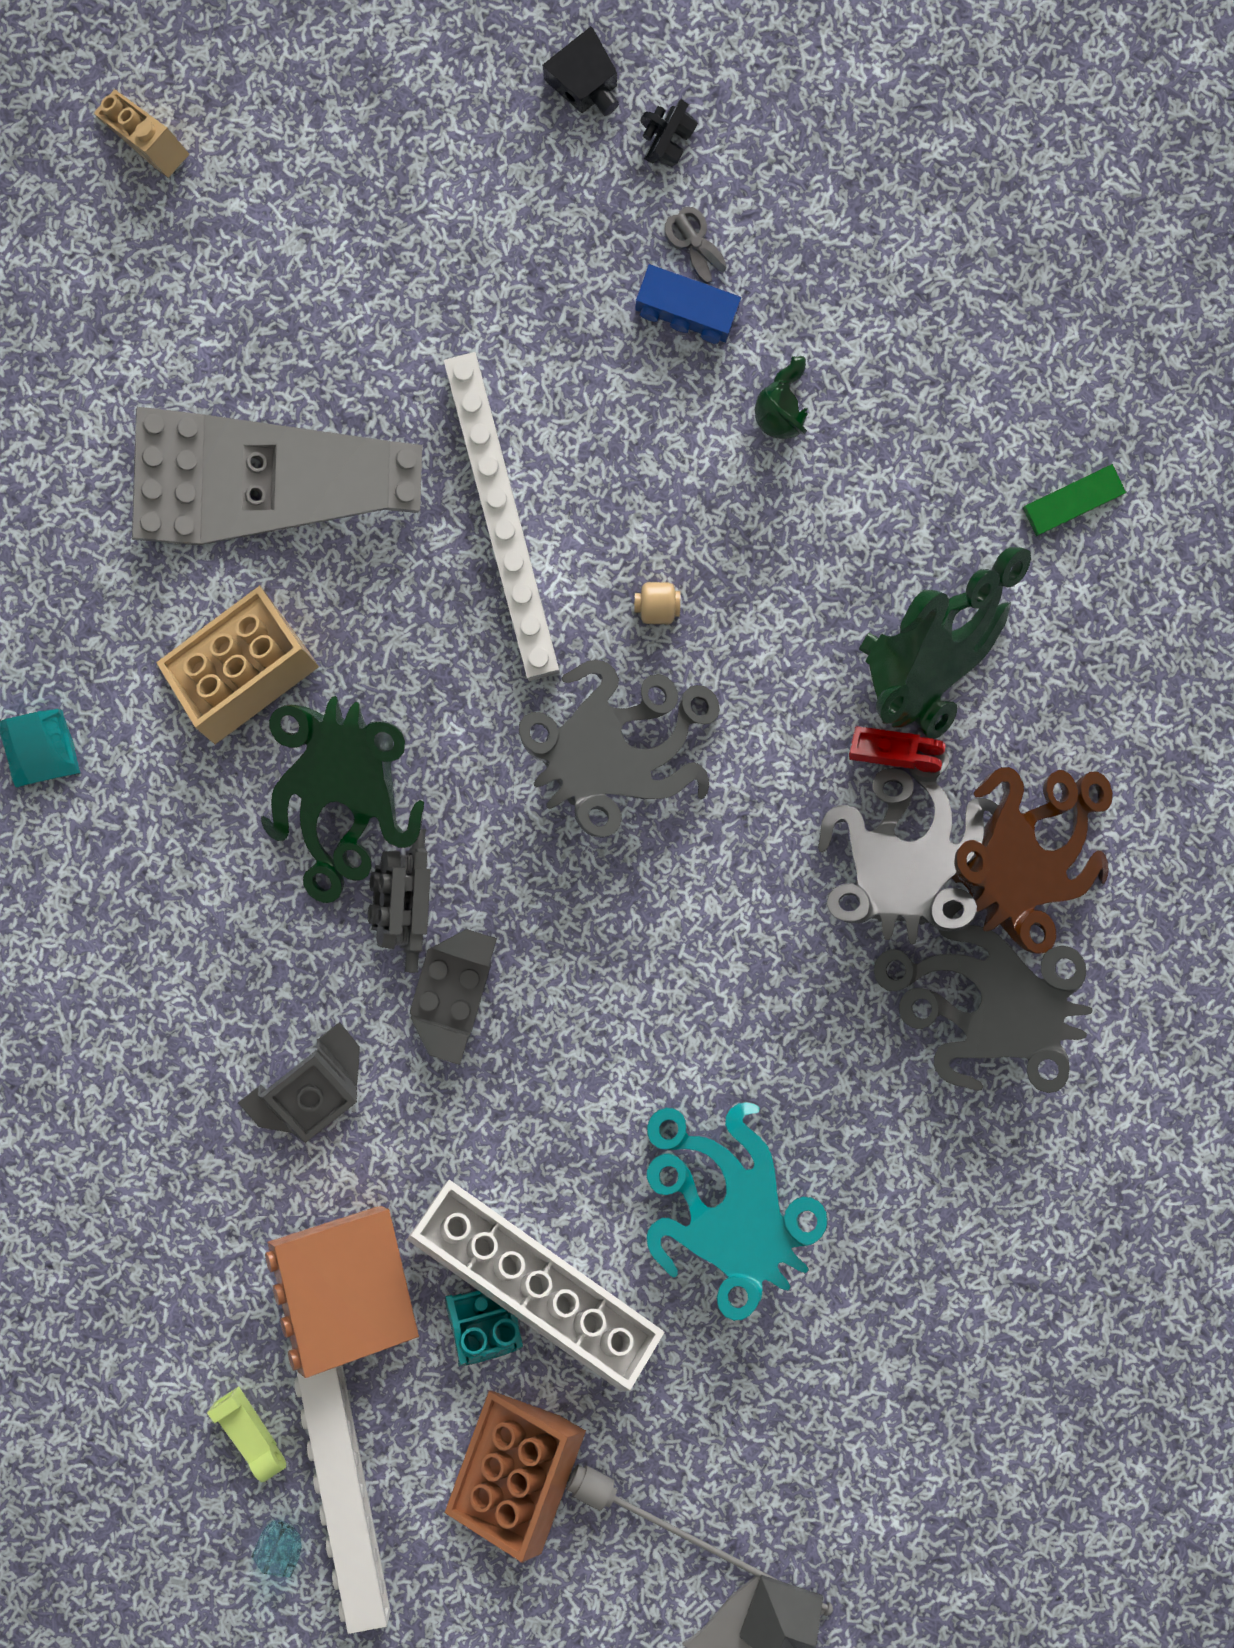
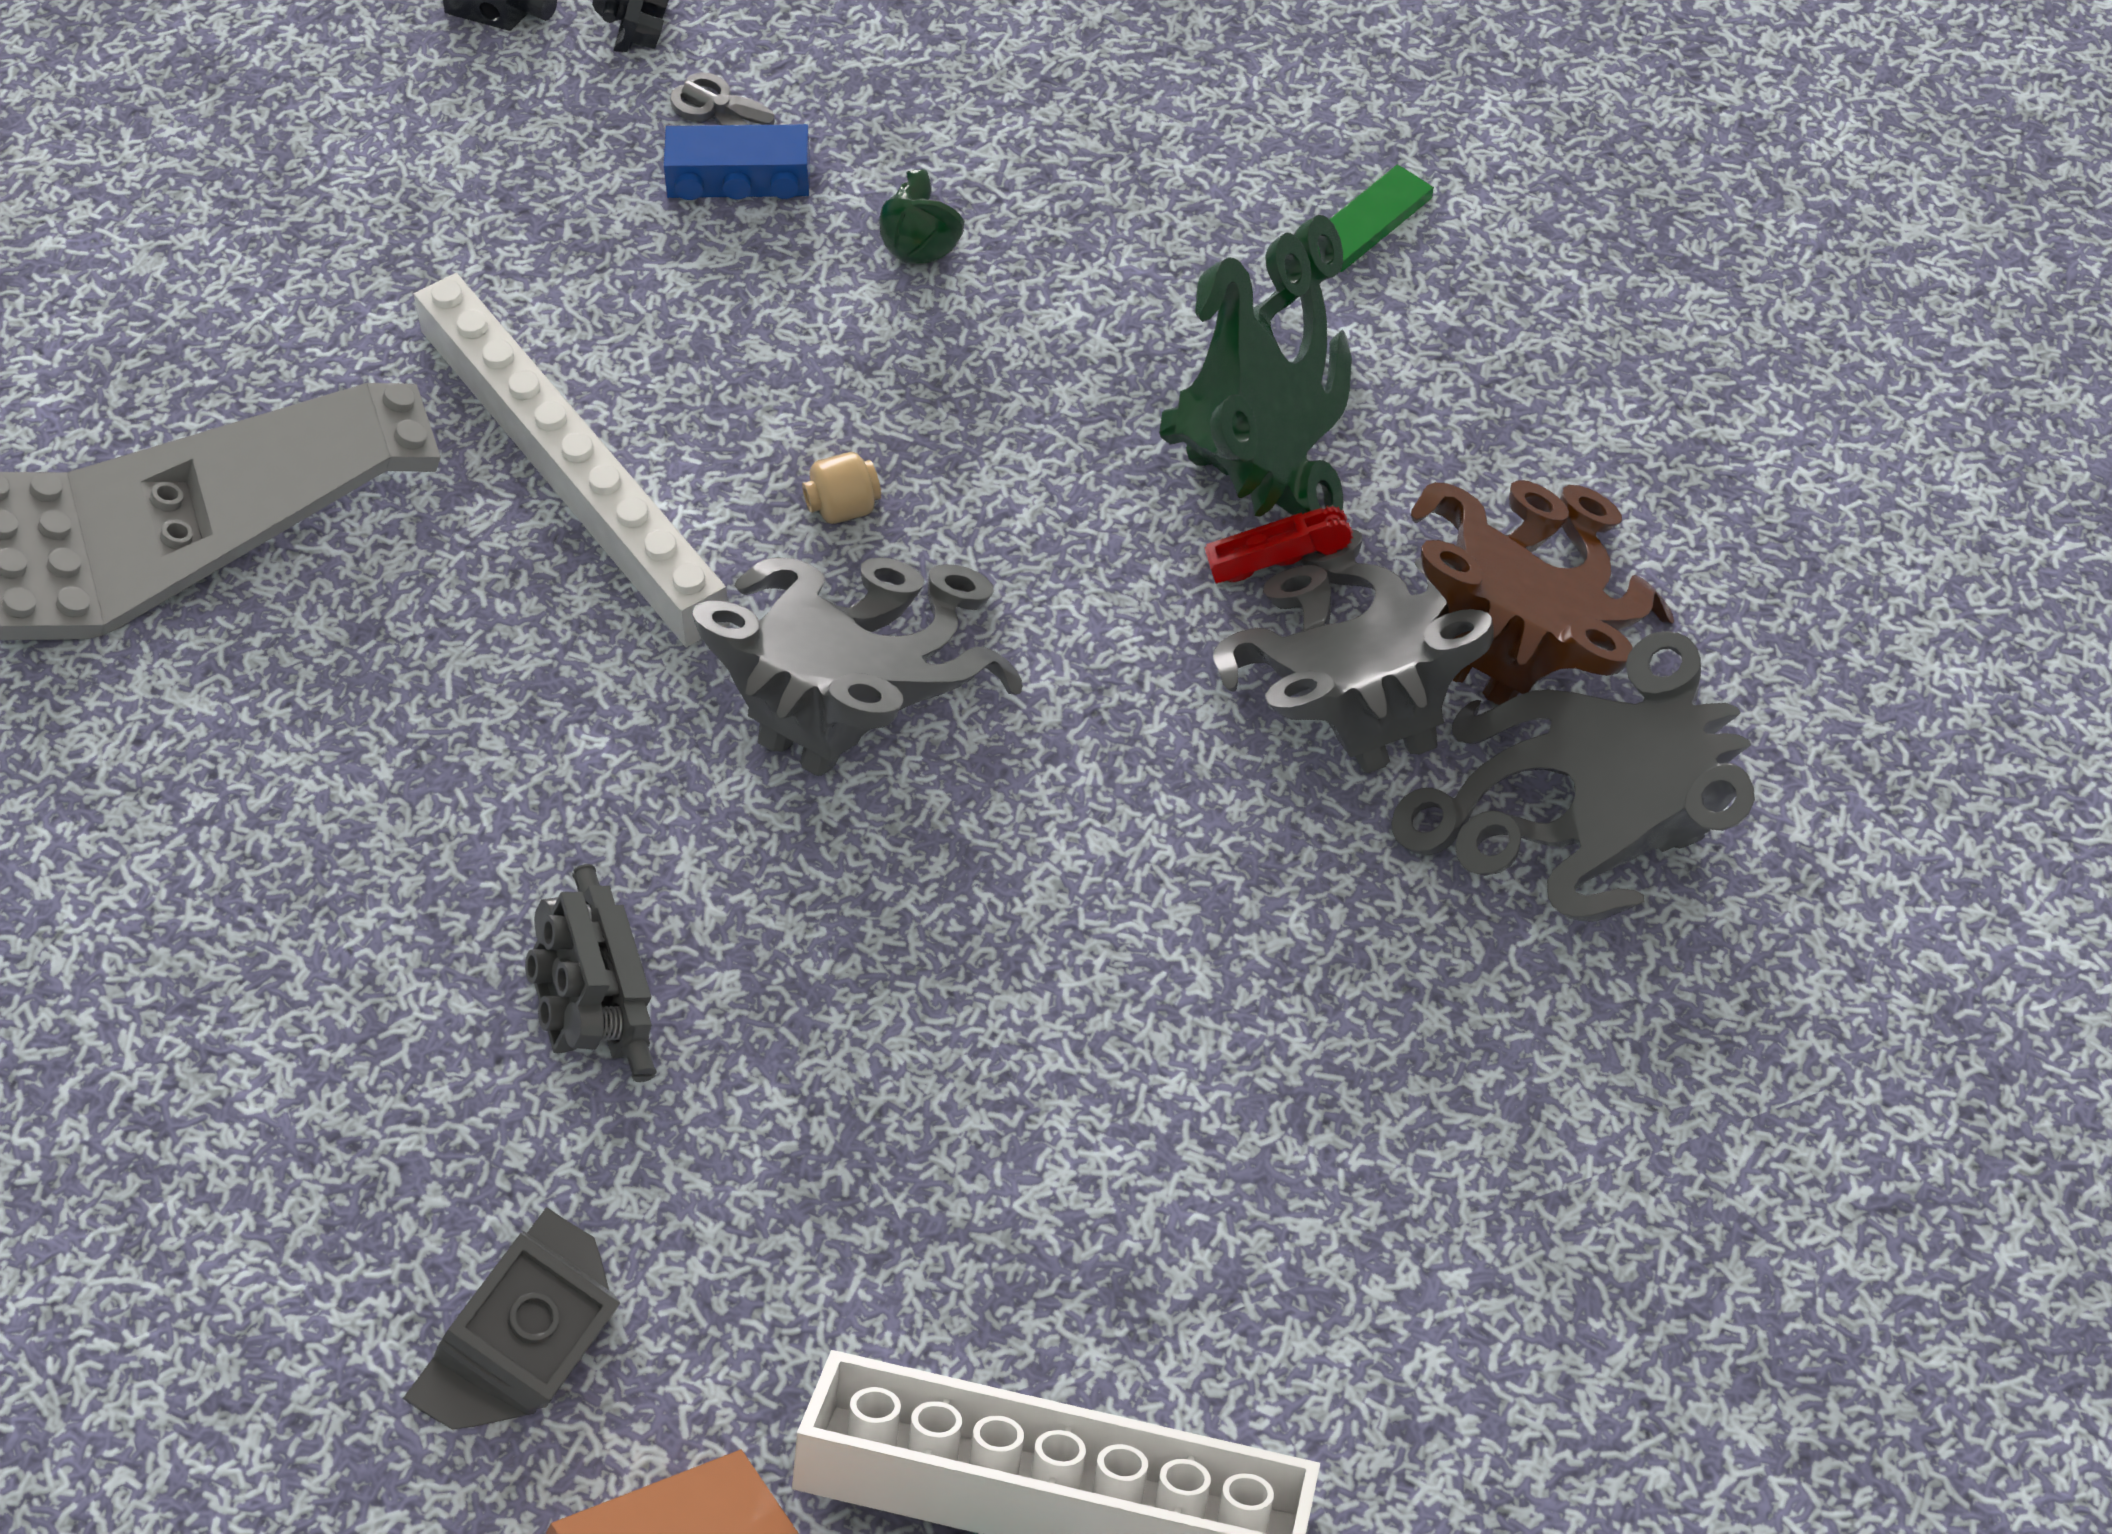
camera: 30 degrees left, 35 degrees down
(236, 665) = (213, 756): tan slope -> none
(342, 765) = (424, 782): dark green hips -> none
(451, 993) = (724, 1073): dark grey piece -> none
(744, 1232) = (1382, 1224): teal hips -> none

